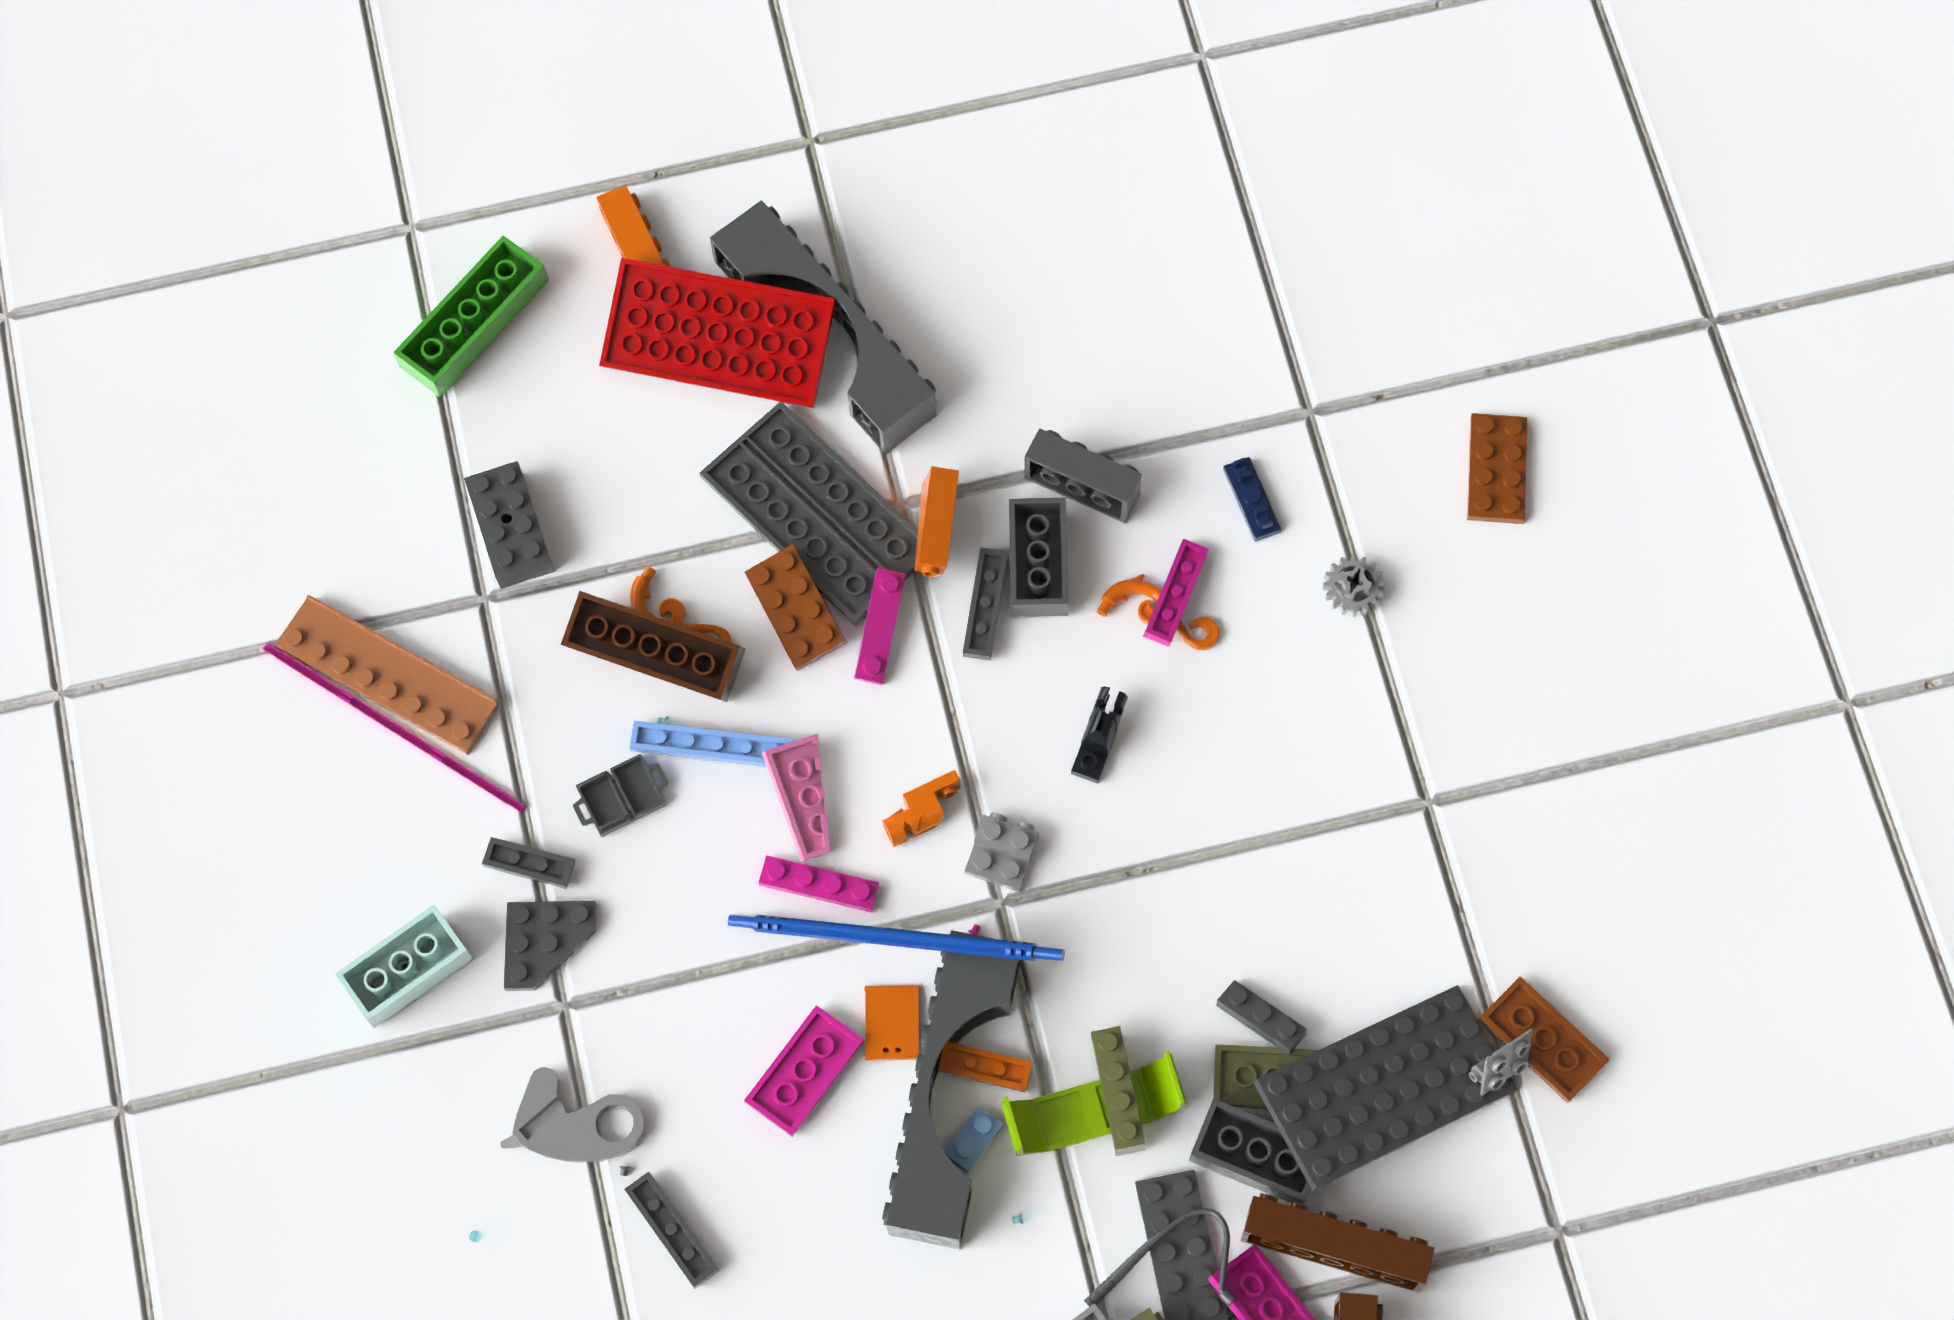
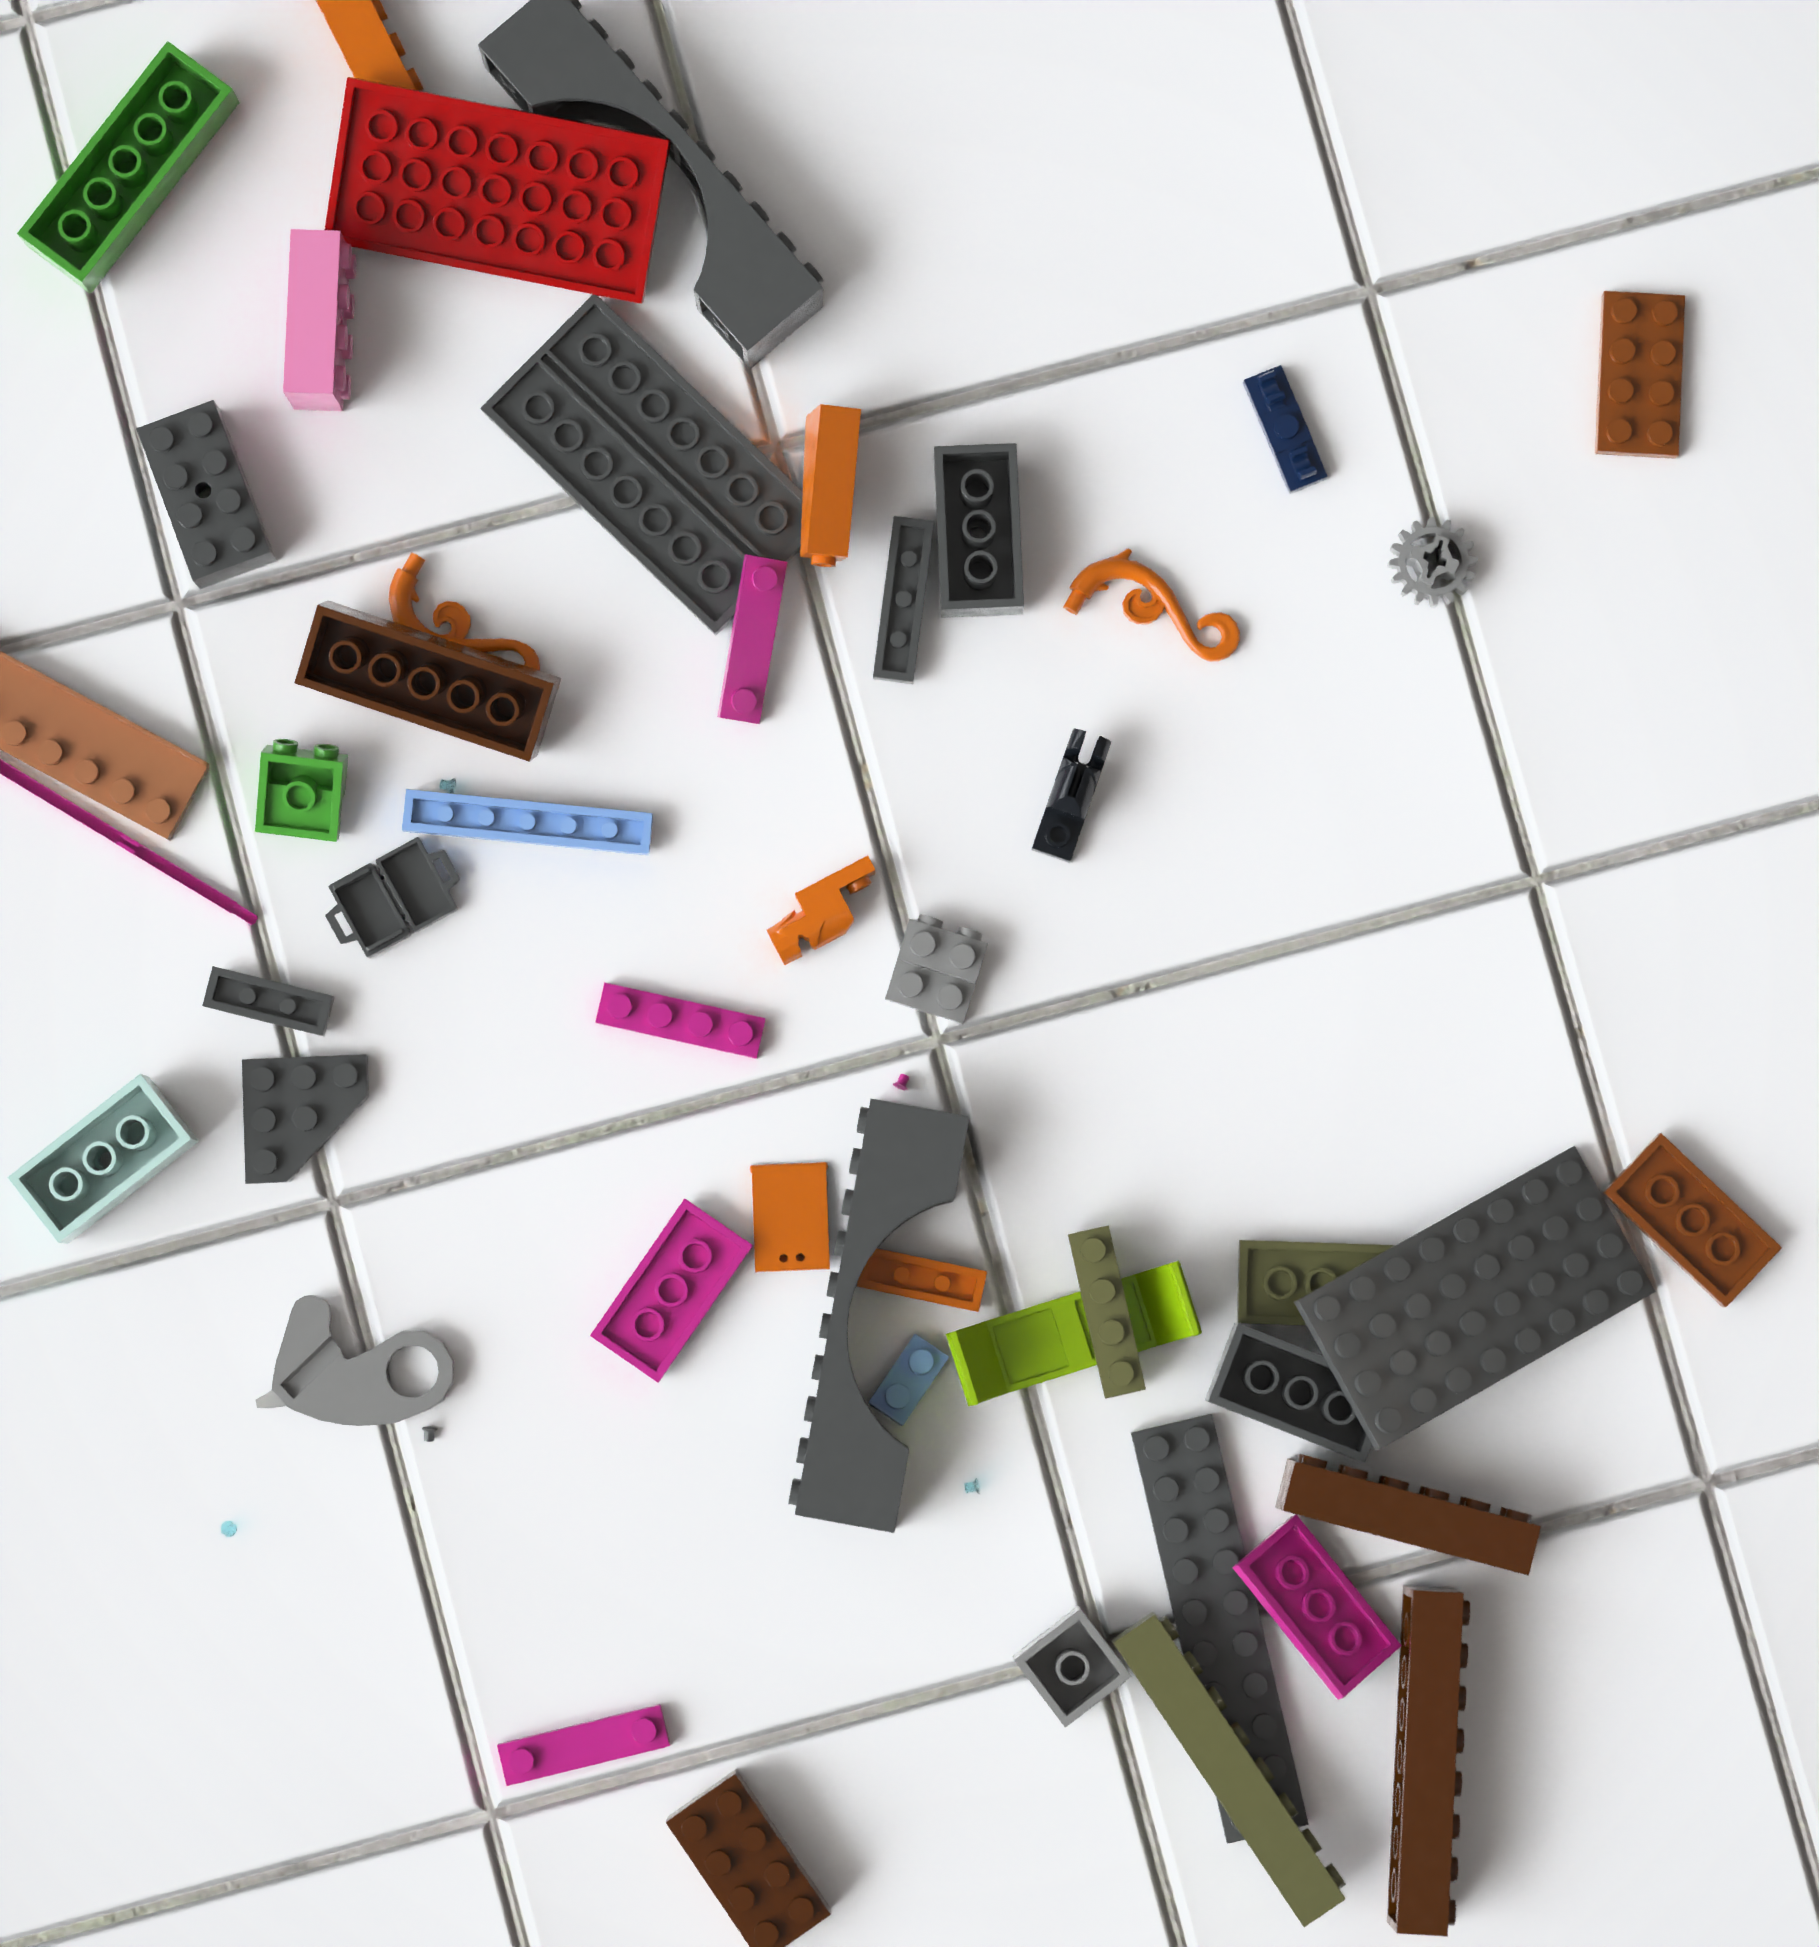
camera: 10 degrees left, 15 degrees up
(560, 720) = (301, 790): none -> bright green plate
(592, 413) = (317, 320): none -> bright pink brick
(671, 1230) = (499, 1516): dark grey plate -> none
(795, 607) = (629, 612): dark orange plate -> none
(798, 784) = (648, 888): bright pink wing -> none
(897, 937) = (794, 1109): blue axle -> none
(1082, 475) = (1039, 403): dark grey brick -> none
(1117, 1276) = (1125, 1547): dark grey piece -> none
(1176, 592) = (1177, 579): dark pink plate -> none
(1261, 1017) = (1303, 1199): dark grey plate -> none
(1502, 1064) = (1640, 1256): light grey hinge -> none

